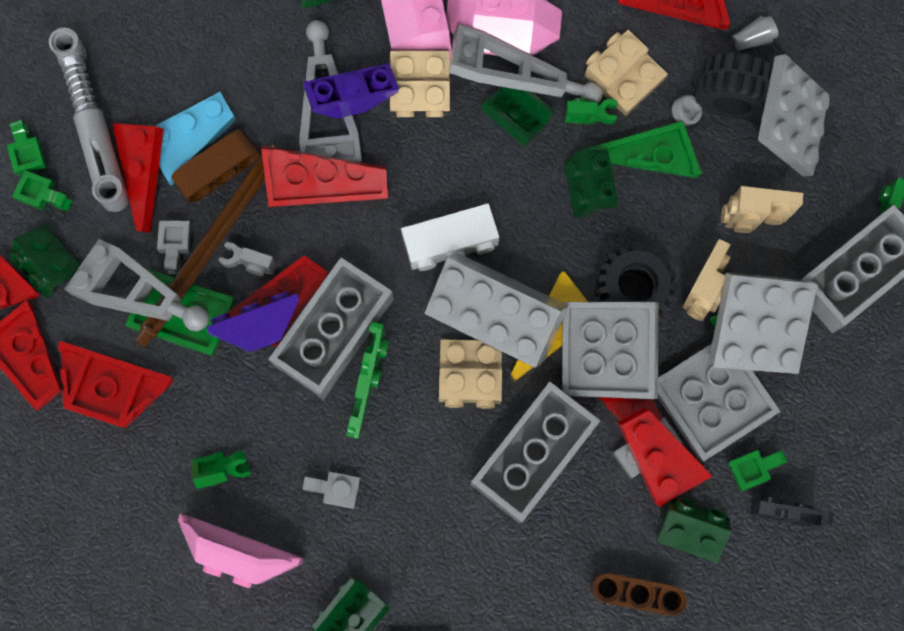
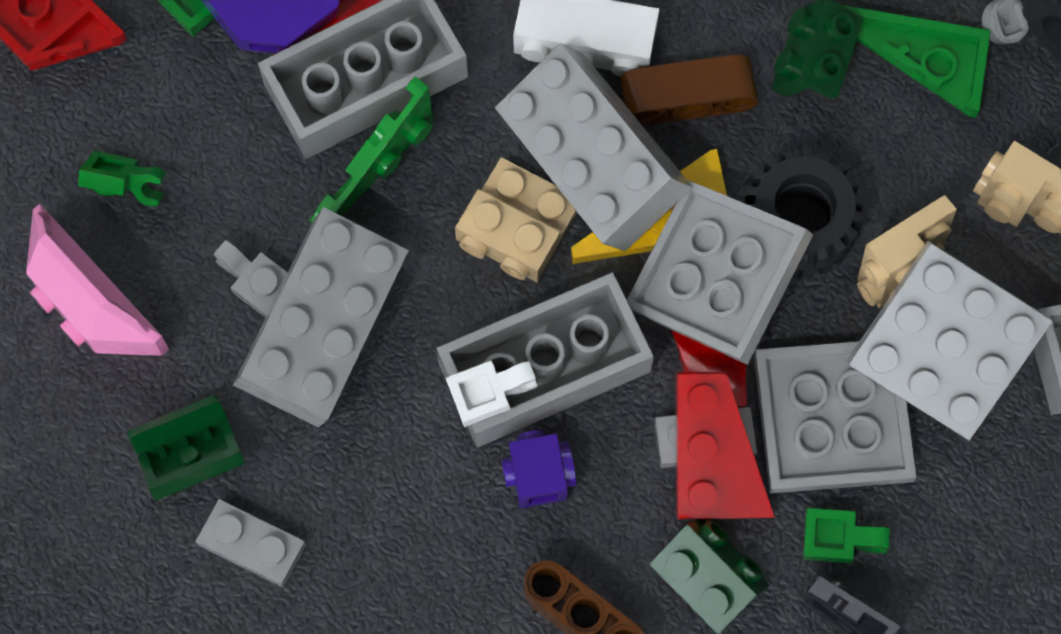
camera: 30 degrees right, 5 degrees down
(389, 495) = (321, 318): none -> light grey brick
(515, 497) = (483, 392): none -> white plate
(529, 242) = (690, 89): none -> reddish brown beam
(564, 518) = (539, 468): none -> dark purple brick

